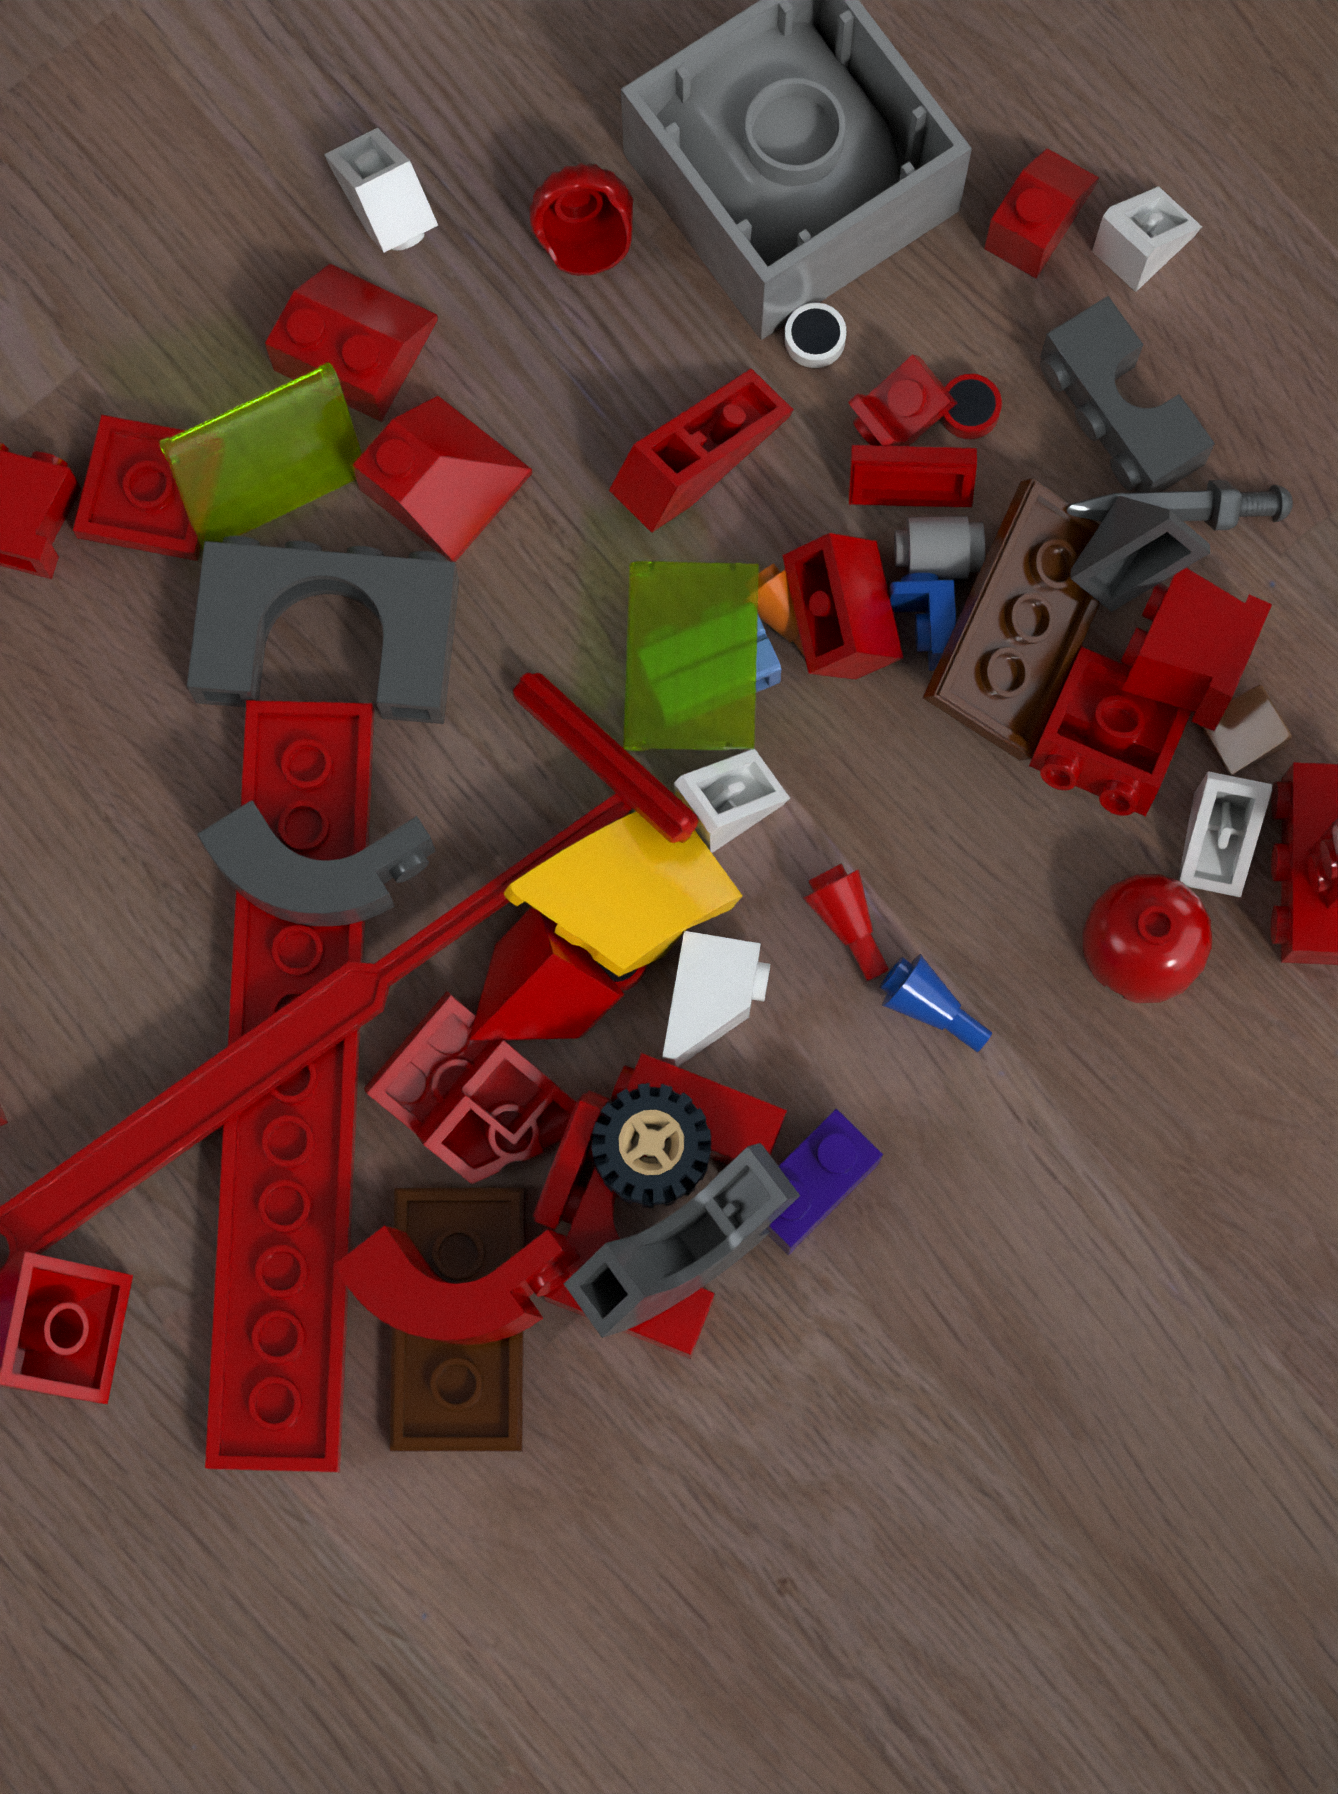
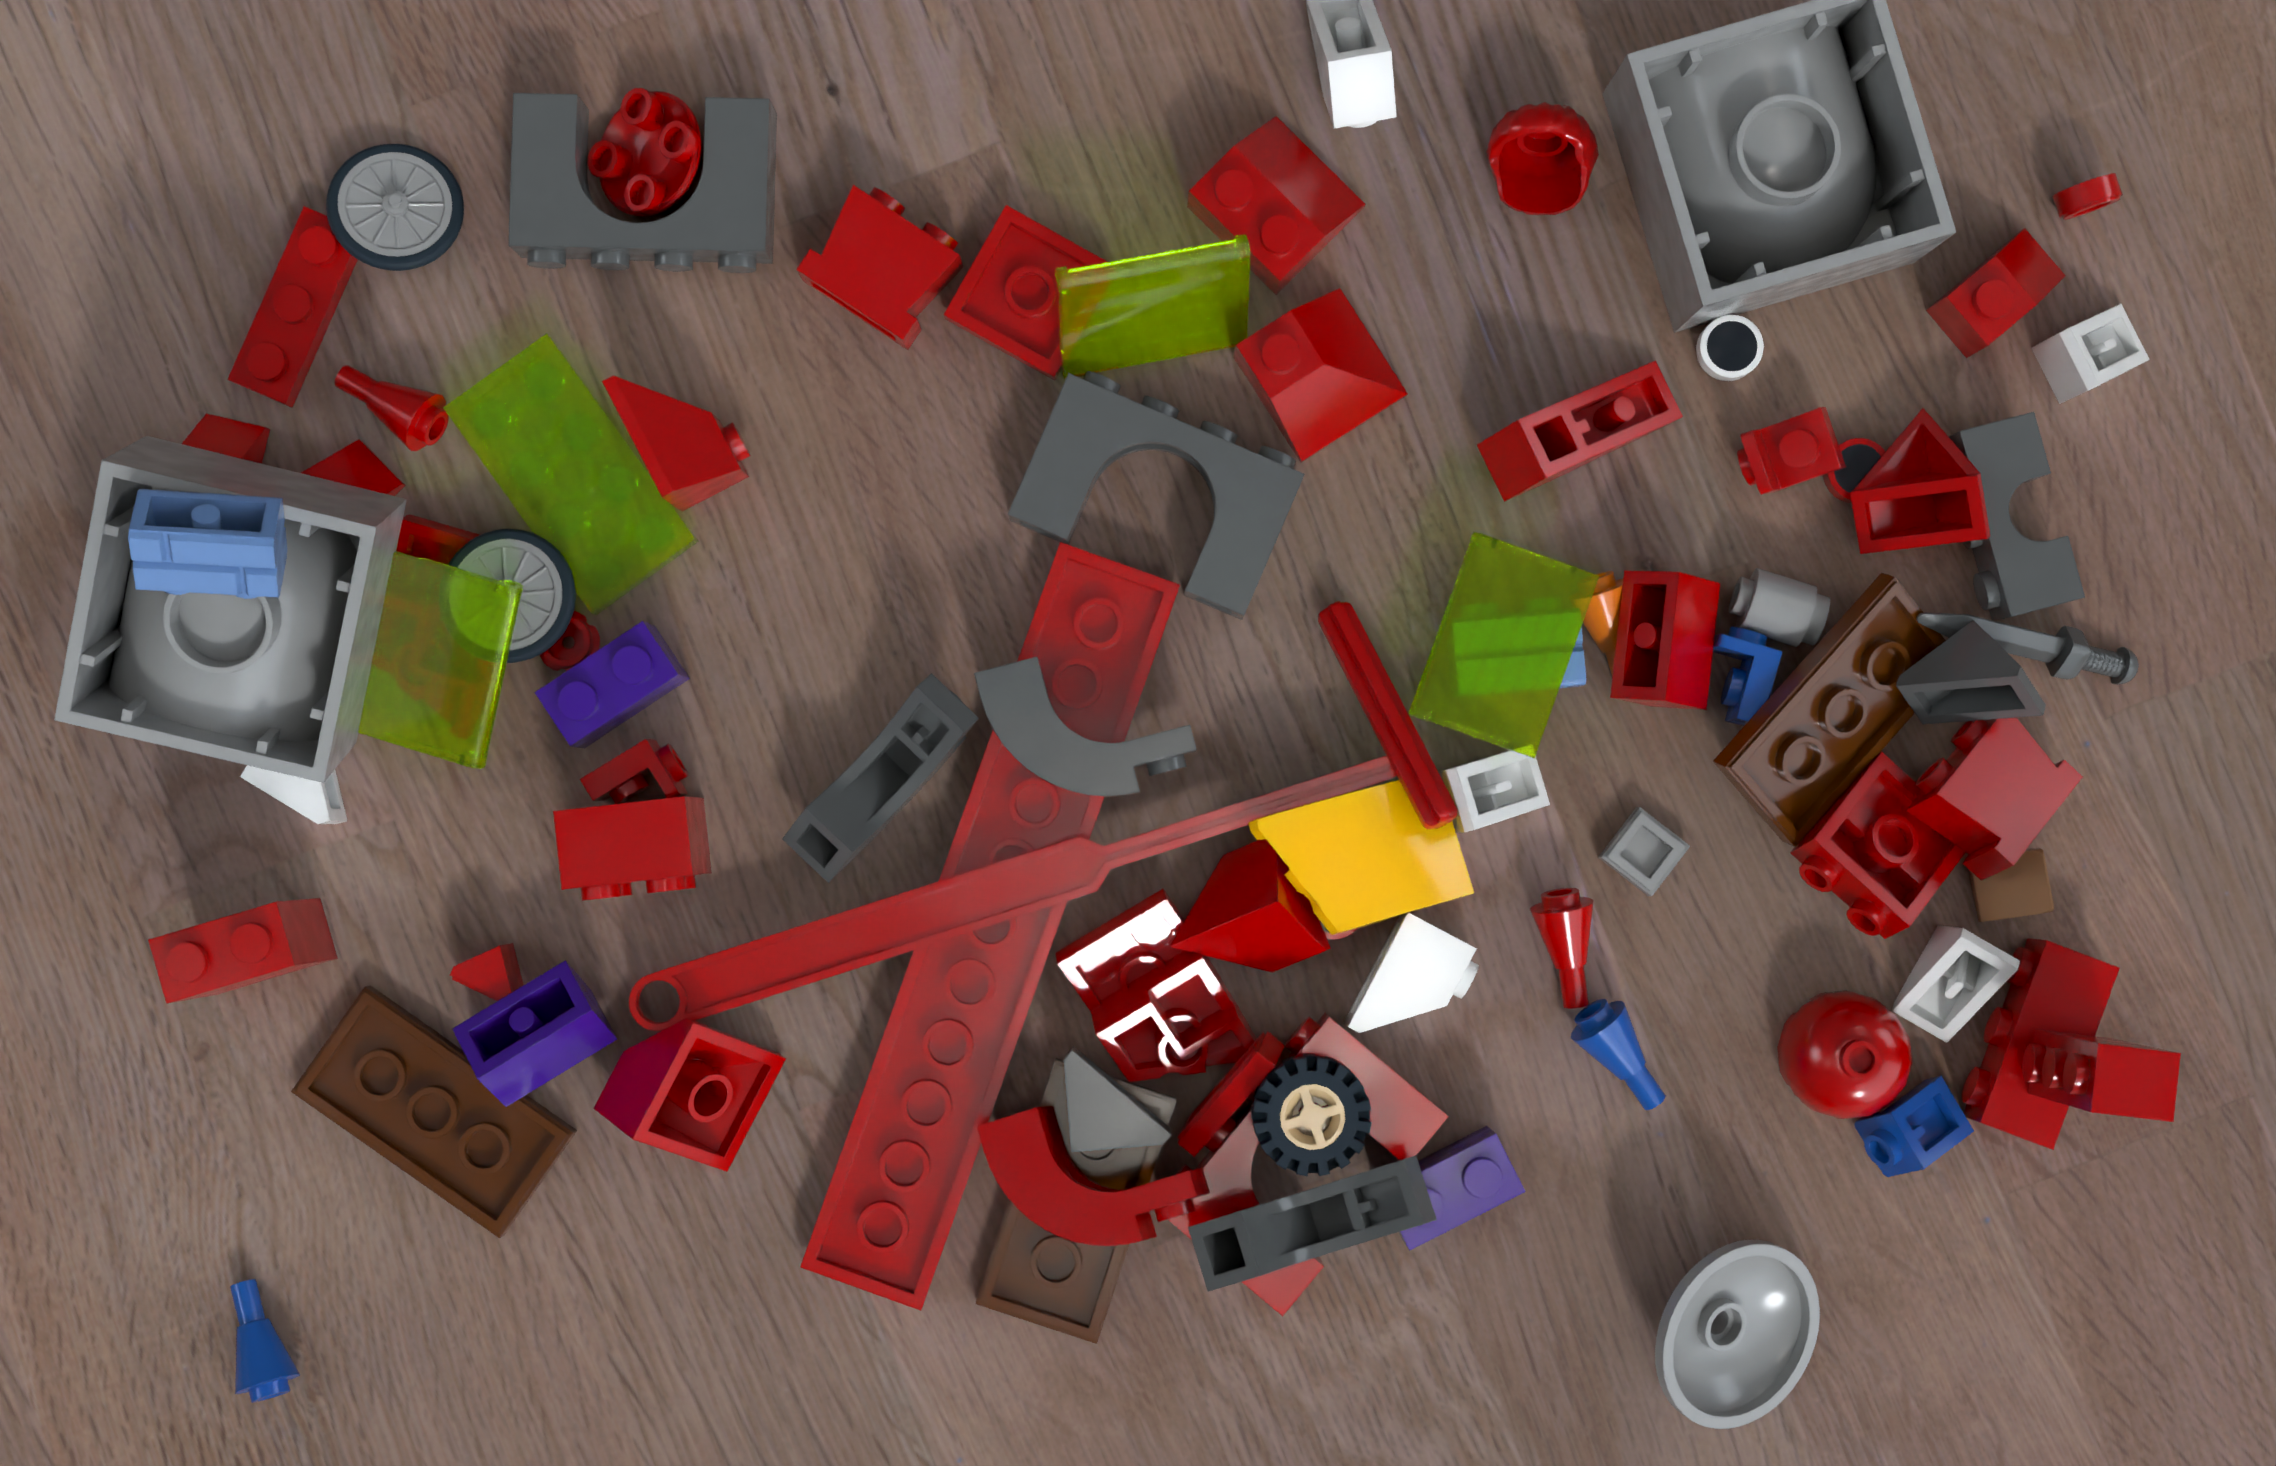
camera: 15 degrees right, 10 degrees up
(147, 972) = (881, 779): none -> dark grey arch
(455, 1215) = (1105, 1113): none -> slope
(893, 812) = (1644, 851): none -> light grey tile
(912, 476) = (1776, 527): red tile -> none
(1031, 403) = (1919, 493): none -> red slope
(1091, 100) = (2087, 196): none -> red tile
(1158, 1222) = (1737, 1334): none -> light grey dish
(1236, 984) = (1914, 1129): none -> blue bracket

